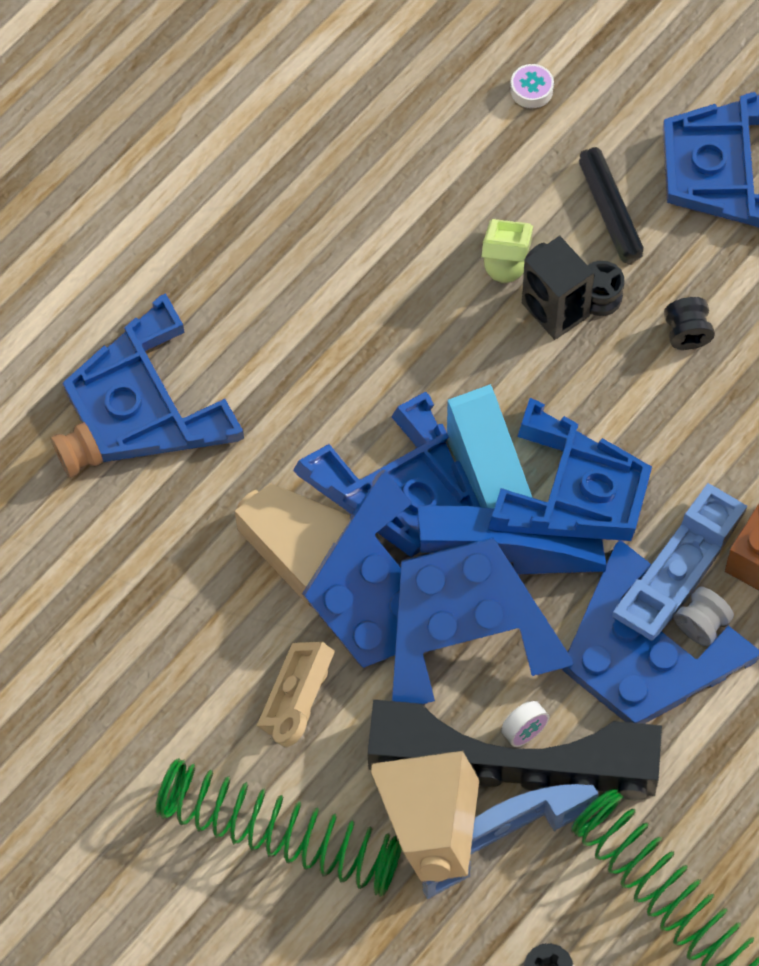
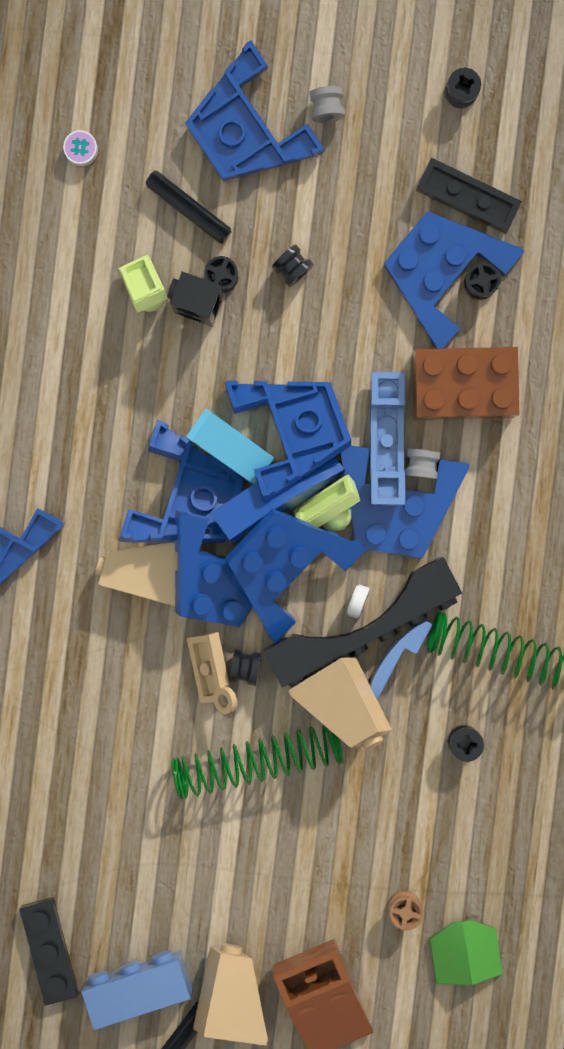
camera: 35 degrees left, 25 degrees up
(338, 713) = (245, 667): none -> black wheel
(562, 596) = (330, 506): none -> yellowish green tile

